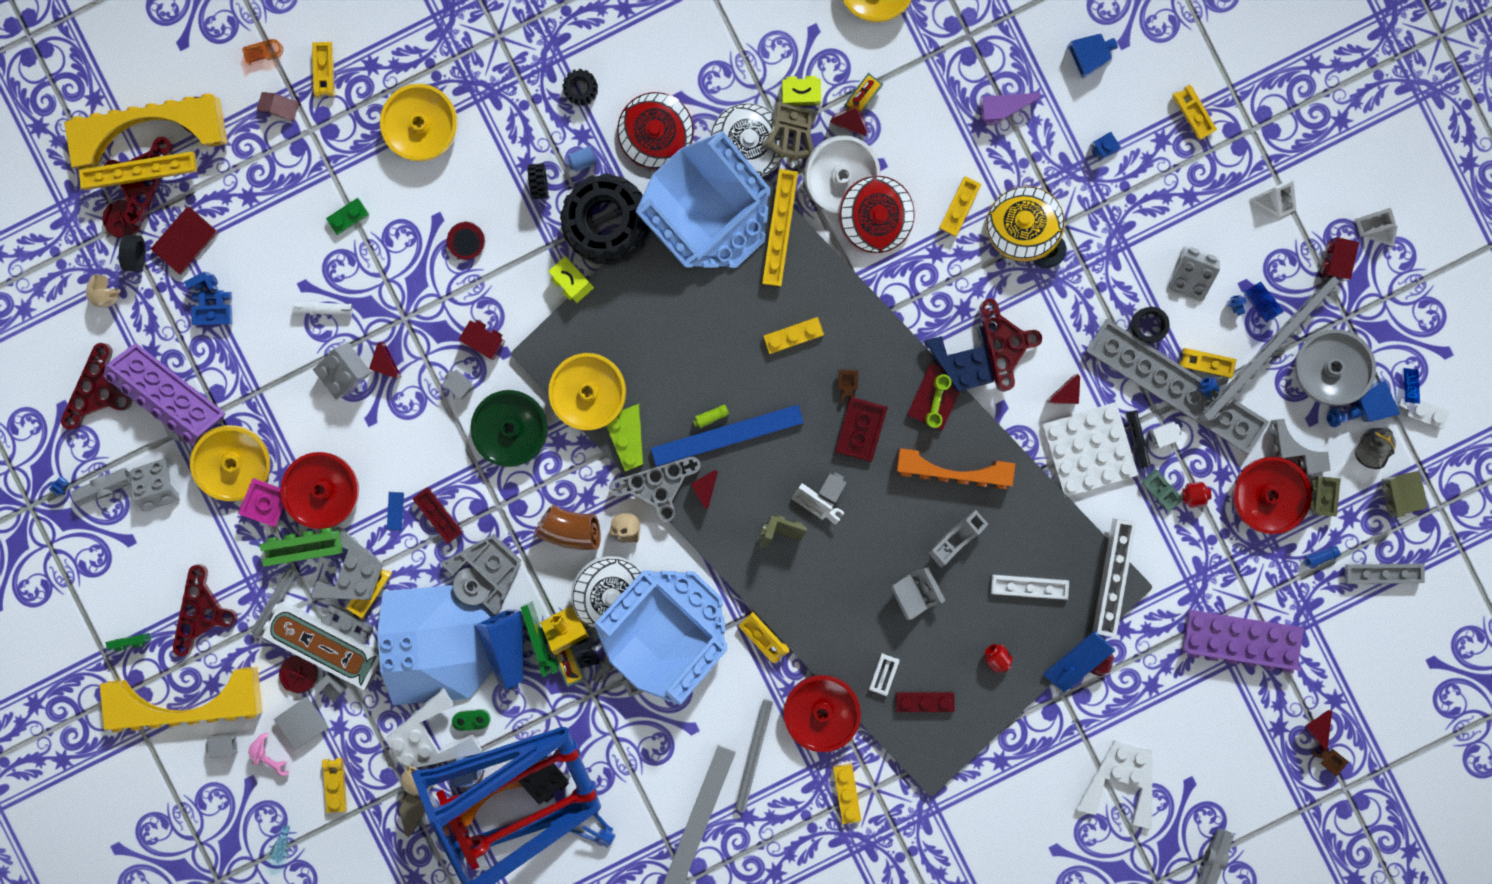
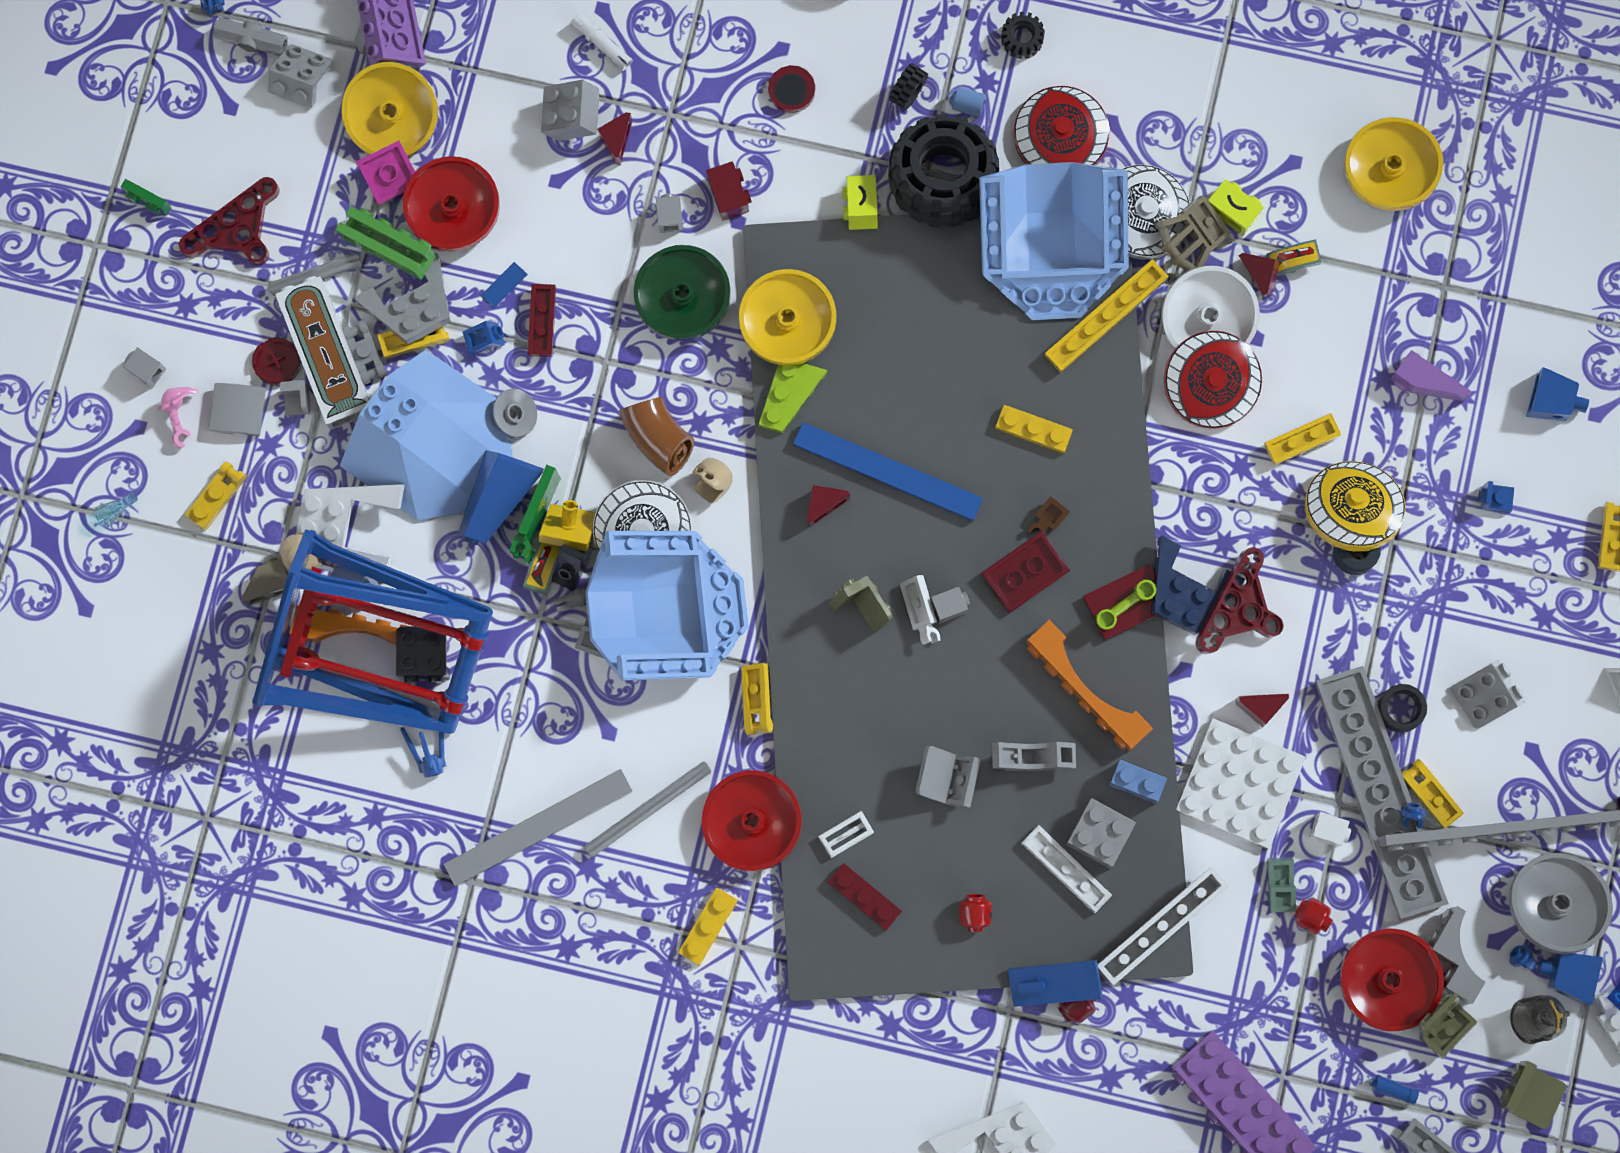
camera: 45 degrees right, 10 degrees down
(126, 709) = (198, 334): yellow arch -> none
(411, 555) = (483, 337): none -> blue bracket
(470, 719) = (401, 541): green plate -> none
(494, 562) = (556, 409): light grey wing -> none
(648, 490) = (790, 468): light grey beam -> none
(710, 416) = (885, 439): lime piece -> none
(1031, 501) = (1137, 782): none -> medium blue brick
(1034, 550) = (1100, 833): none -> light grey brick
(1138, 439) = (1294, 821): black pin -> none
(1236, 303) = (1509, 757): blue plate -> none
(1263, 302) = (1537, 778): clear blue plate -> none

